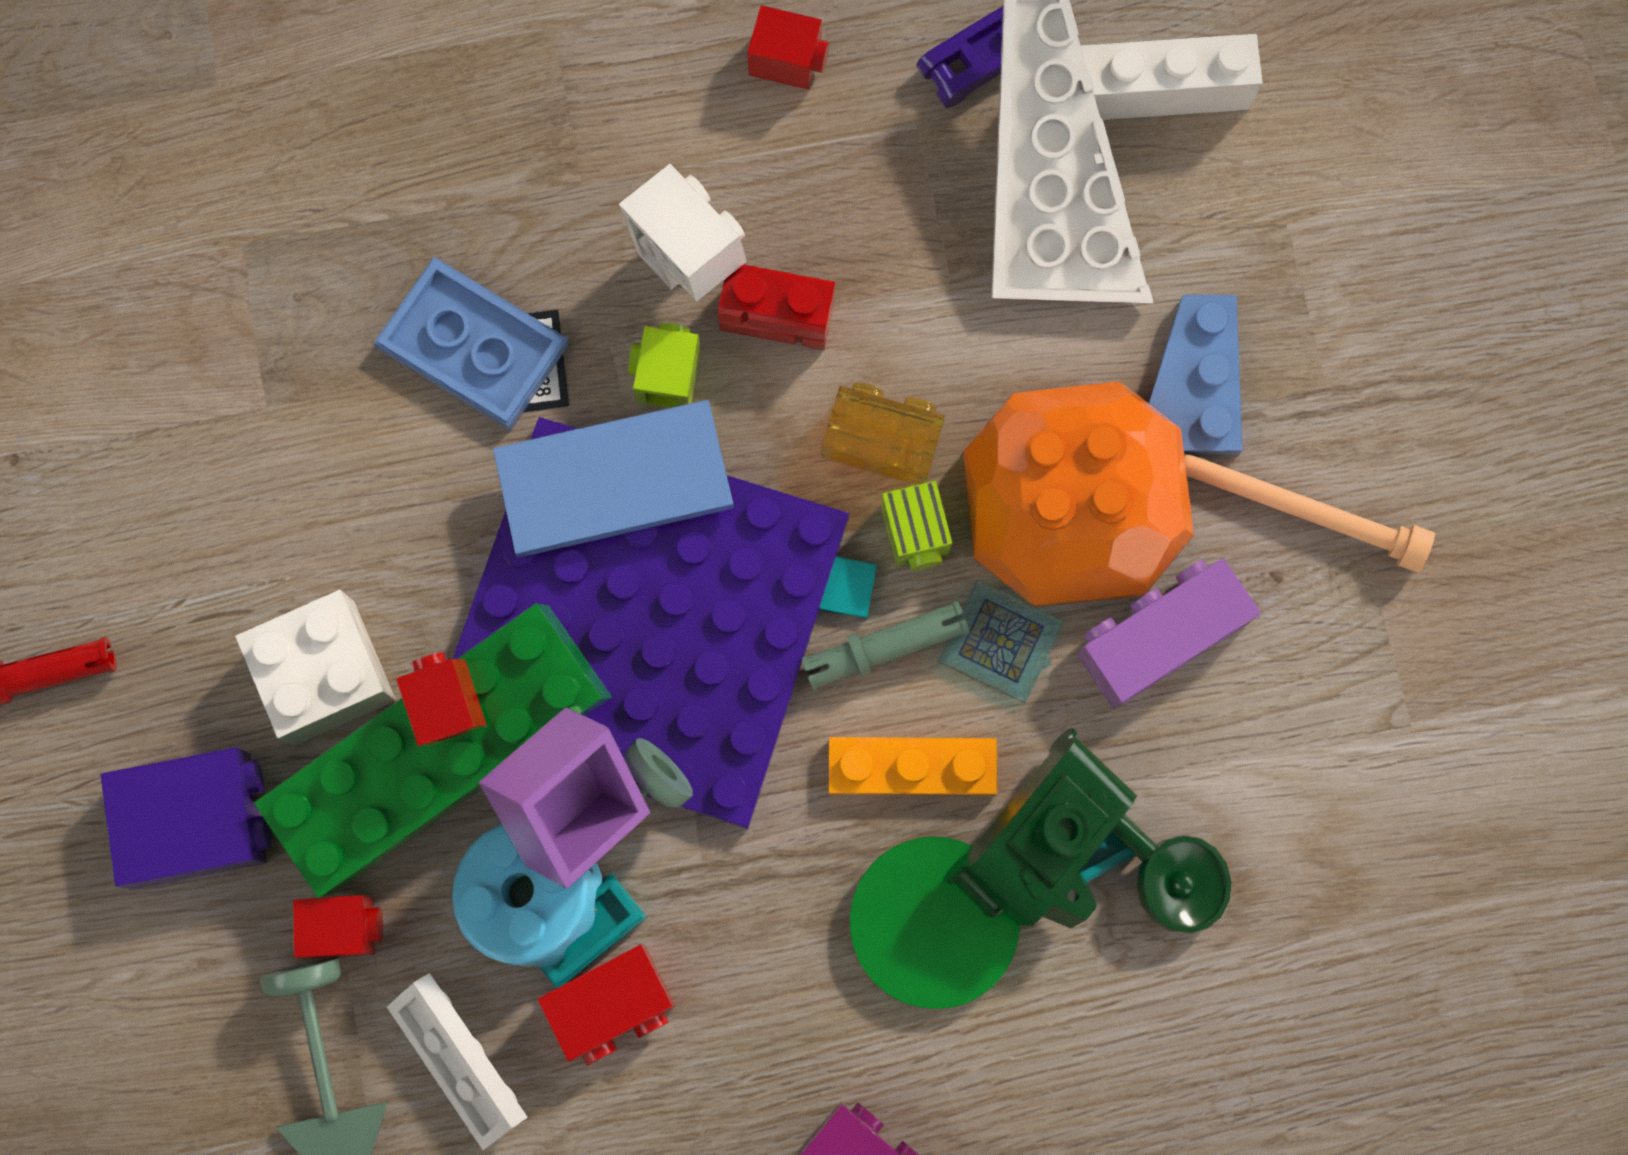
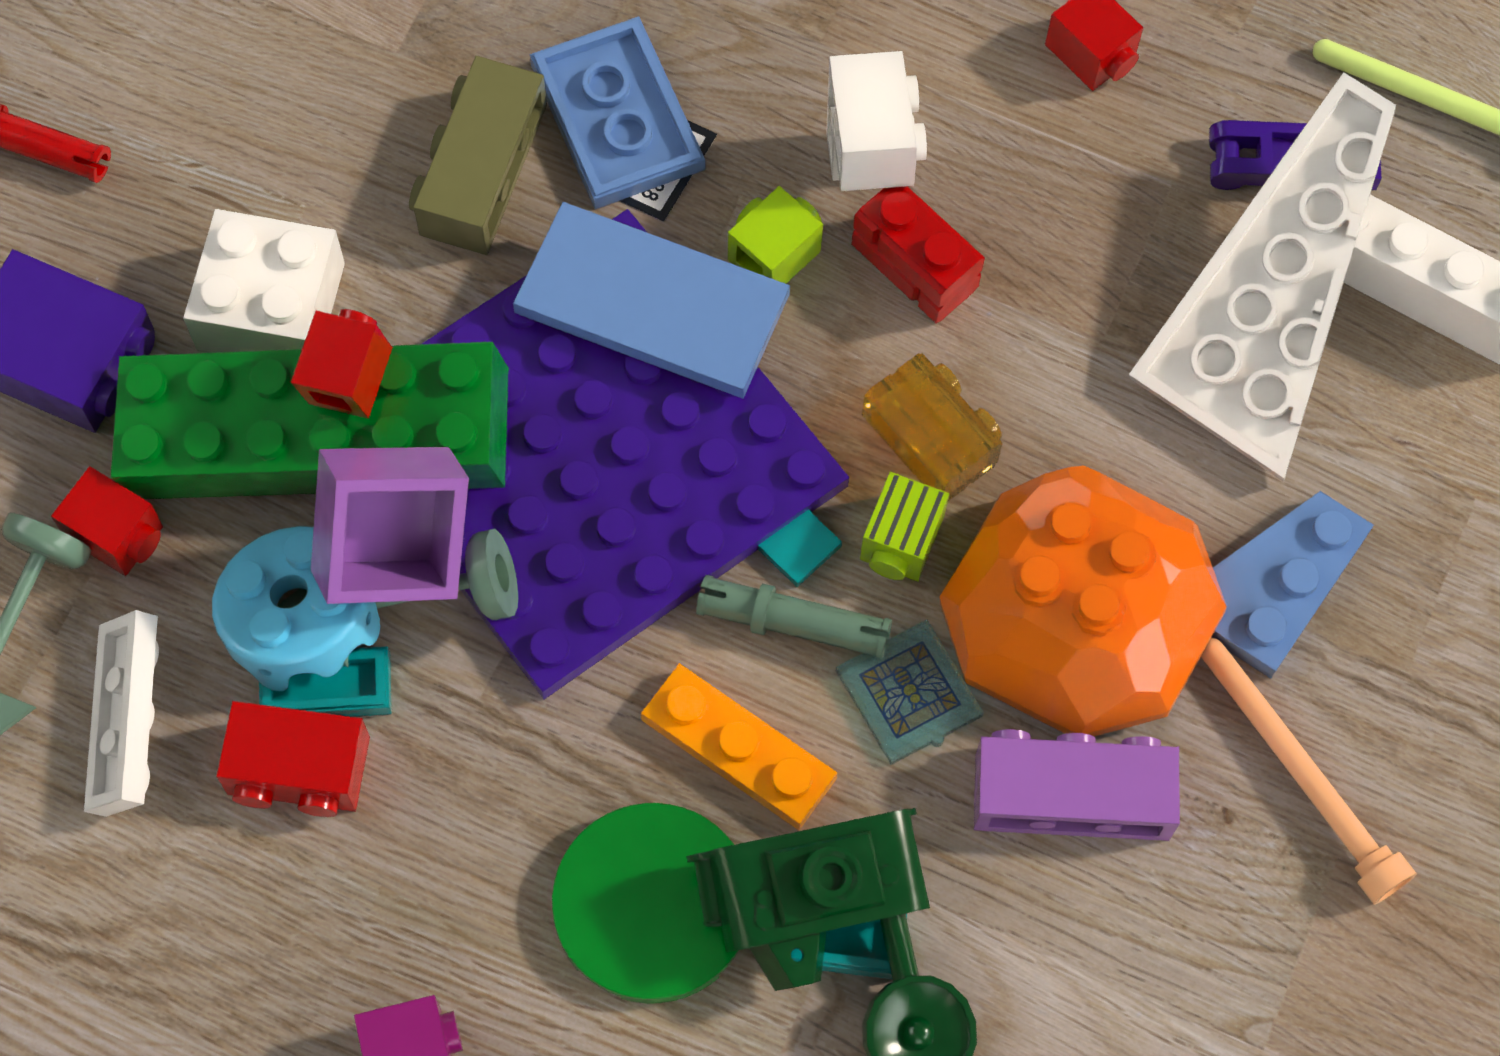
camera: 35 degrees right, 10 degrees down
(395, 450) = (478, 154): none -> olive brick

